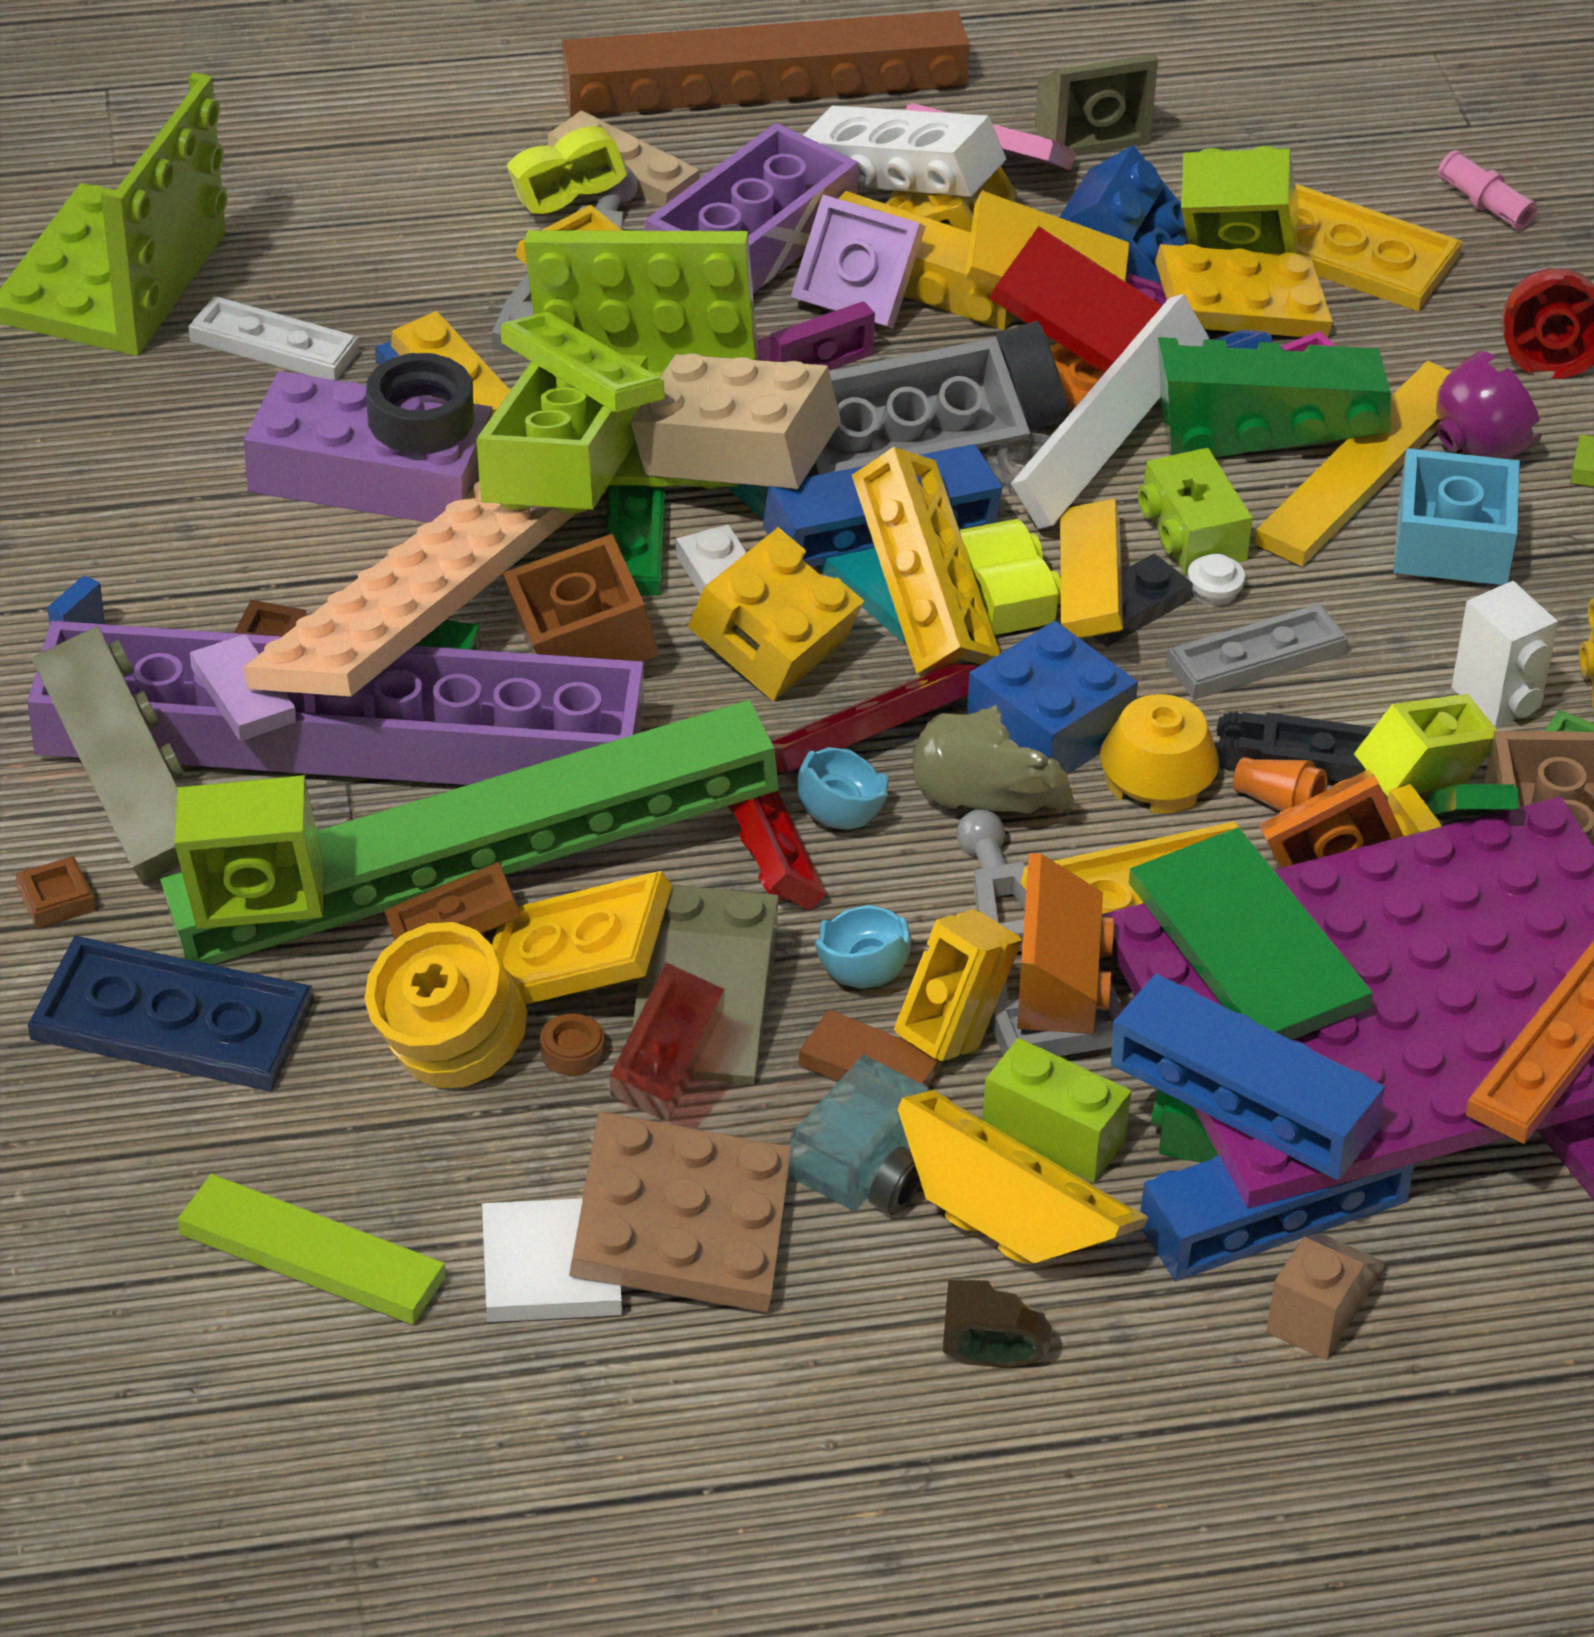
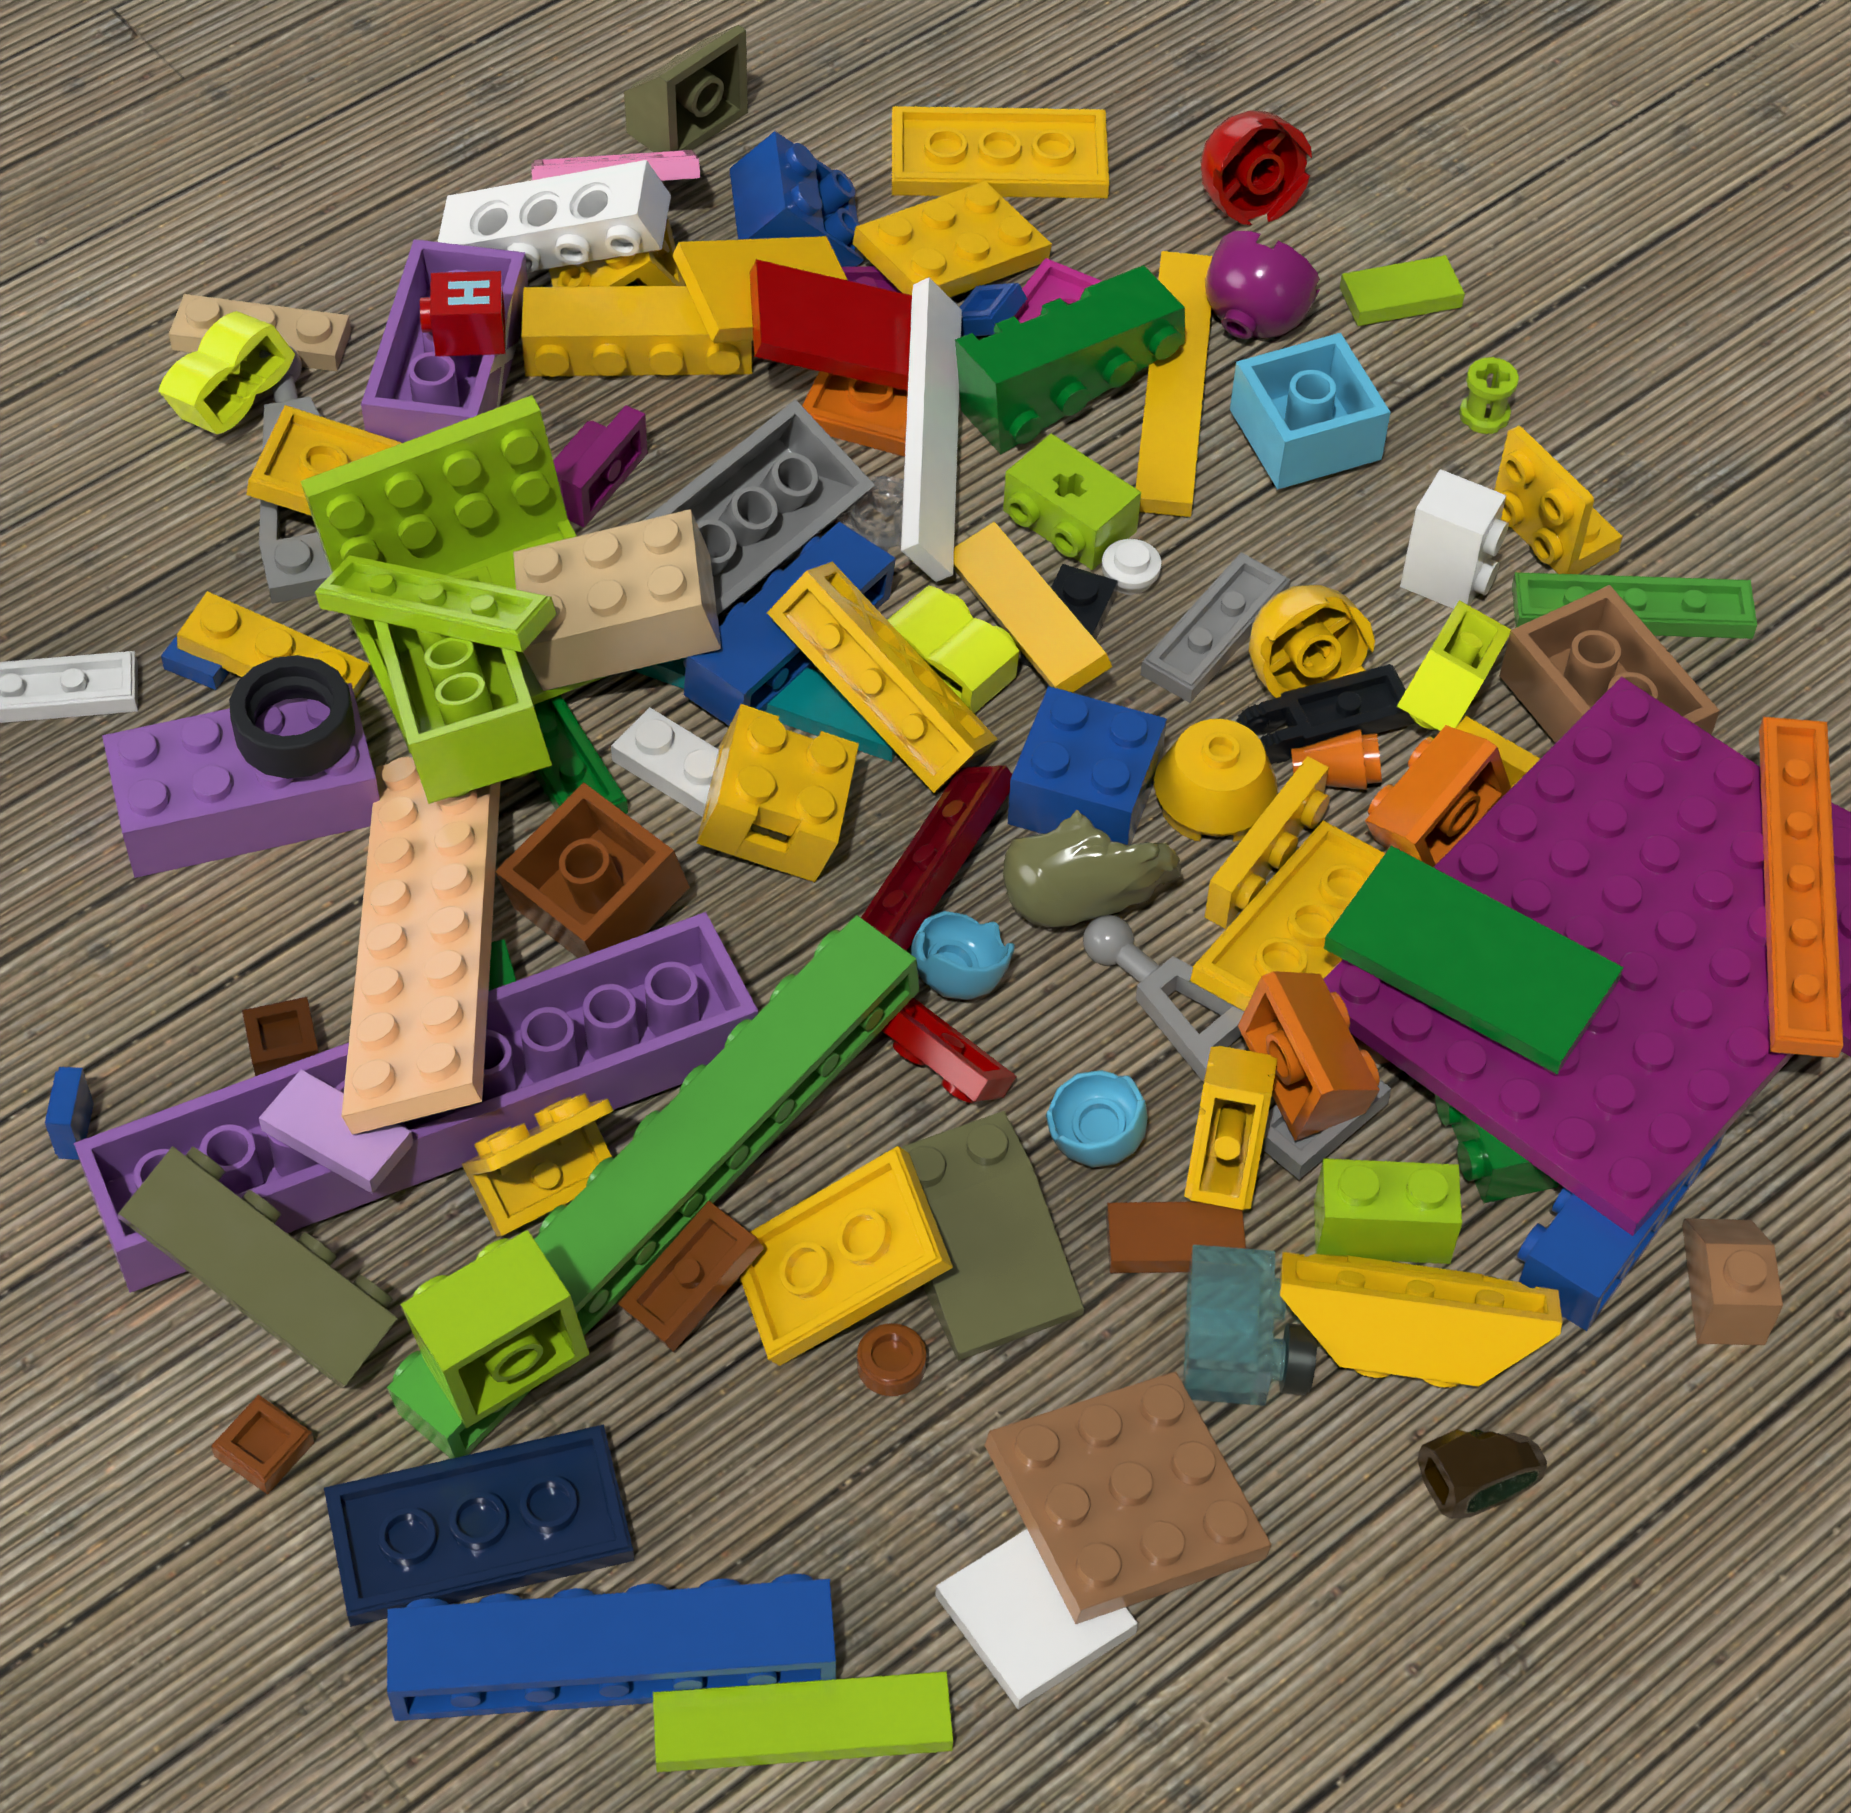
camera: 30 degrees left, 10 degrees up
(198, 1125) = (605, 1647): none -> blue brick
(388, 771) = (538, 1169): none -> yellow bracket
(446, 1005) = (738, 1364): yellow wheel -> none
(667, 1042) = (1009, 1324): clear red brick -> none
(764, 63) = (329, 170): dark orange brick -> none
(768, 180) = (465, 313): none -> red brick
(858, 258) = (588, 360): lavender plate -> none
(1034, 375) = (849, 418): black tyre -> none
(1175, 808) = (1268, 842): none -> yellow plate
(1240, 199) = (910, 153): lime brick -> none
(1247, 1076) = (1580, 1110): blue brick -> none
(1316, 676) = (1308, 638): none -> yellow cylinder
(1473, 799) = (1541, 711): green tile -> none
(1487, 190) = (1091, 45): bright pink pin -> none

